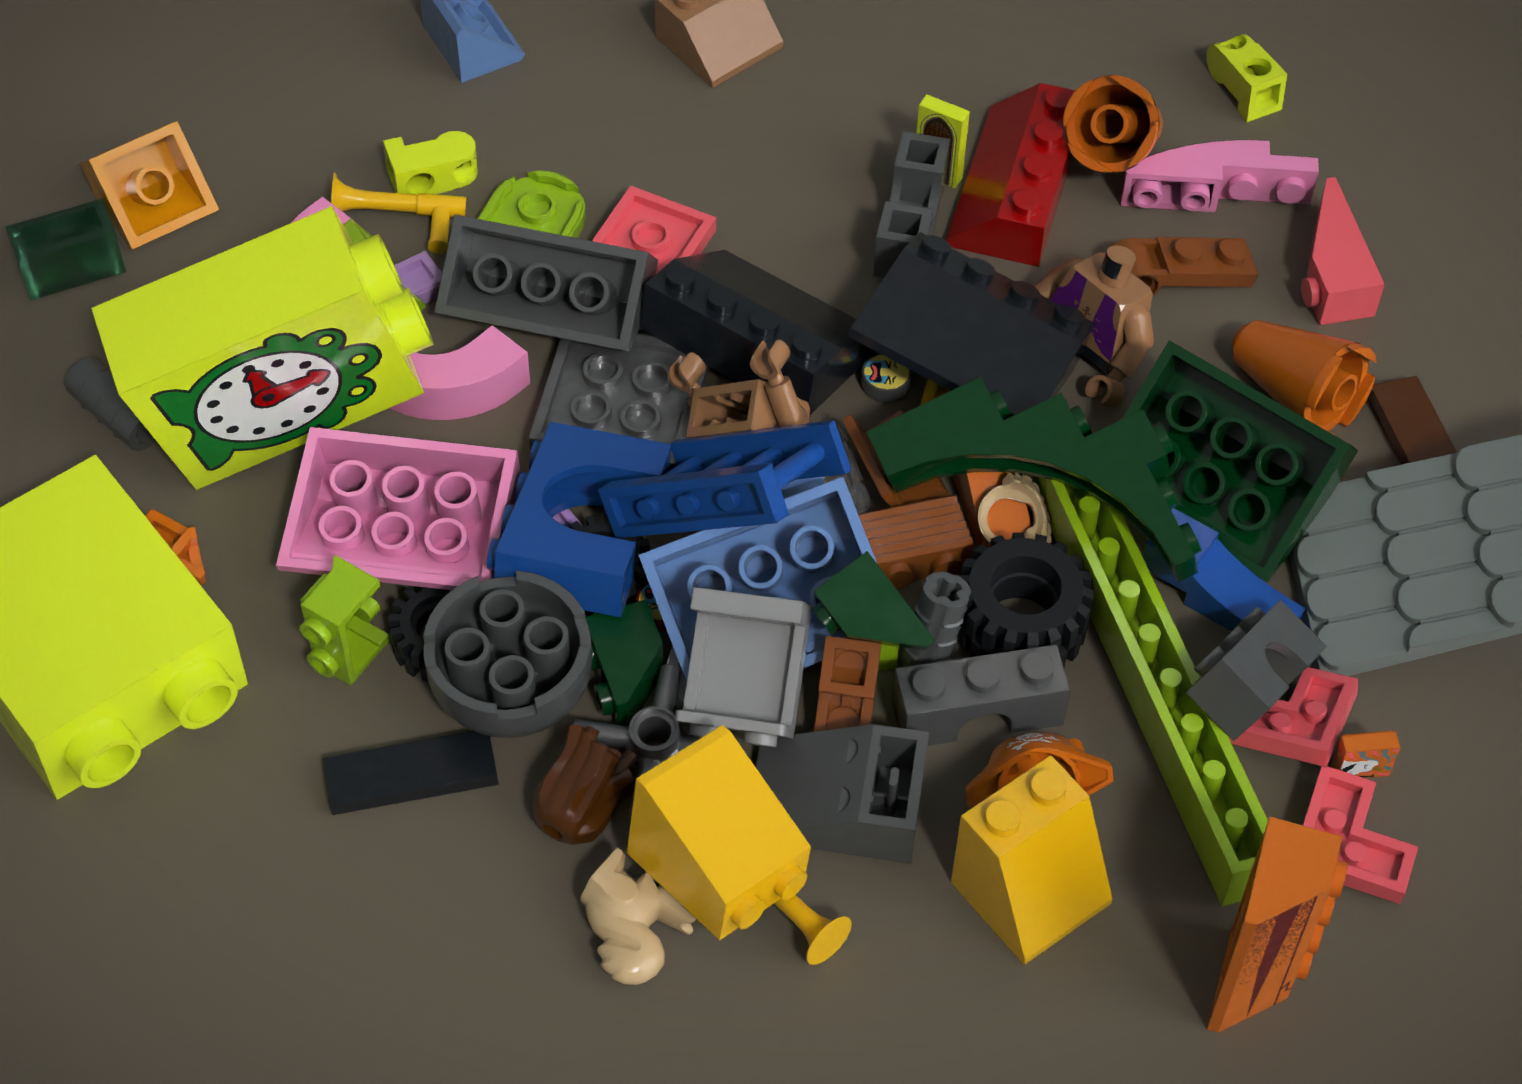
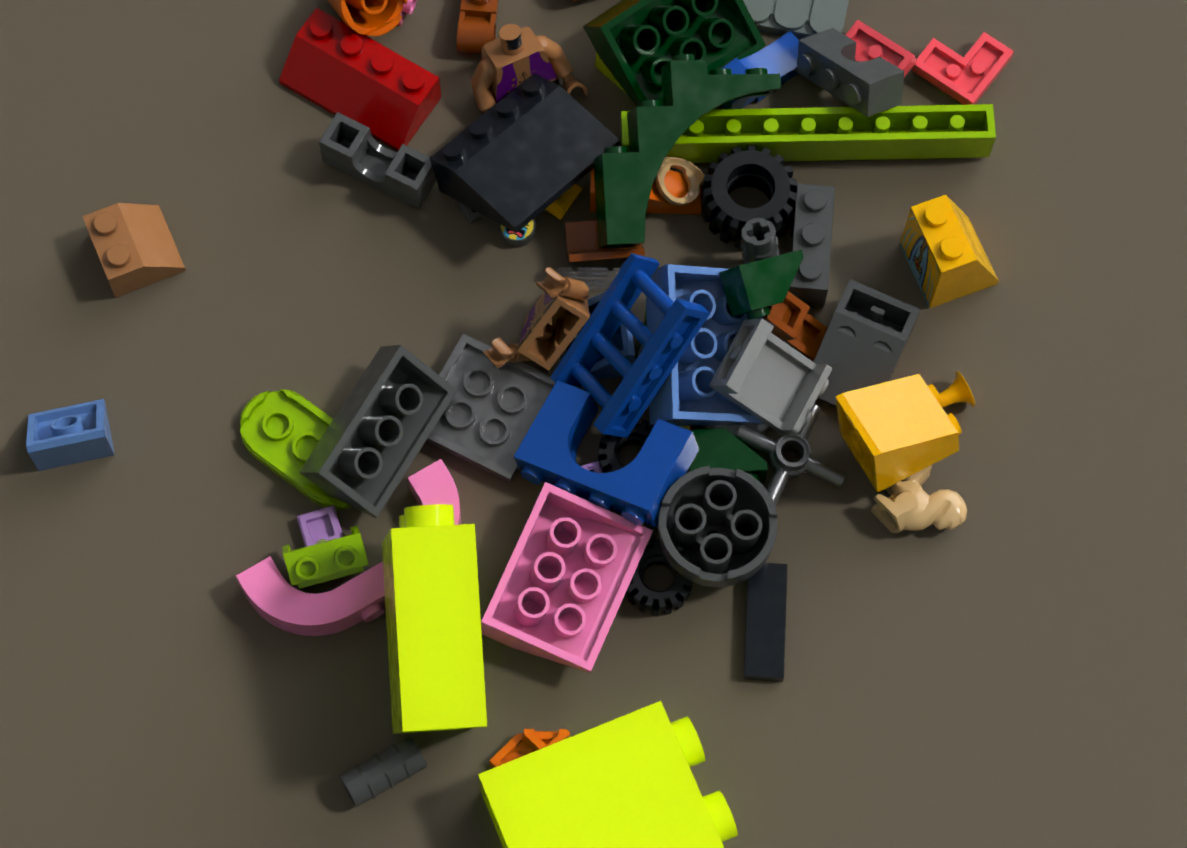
camera: 75 degrees left, 15 degrees up
(65, 248) = (204, 786): clear green slope -> none
(150, 185) = (160, 712): light orange slope -> none
(338, 622) = (650, 635): lime window -> none
(431, 164) = (212, 494): neon yellow leg -> none
(438, 206) = (226, 565): yellow piece -> none
(583, 788) = (817, 510): reddish brown piece -> none
(657, 227) = (337, 349): coral plate -> none
(729, 306) = (457, 294): black slope -> none
(918, 539) = (675, 237): dark orange brick -> none
(950, 122) = (321, 114): neon yellow tile -> none
(1028, 749) = (874, 227): orange hat -> none
(1278, 920) = (1052, 126): orange slope -> none
(1367, 753) = (911, 32): orange tile -> none

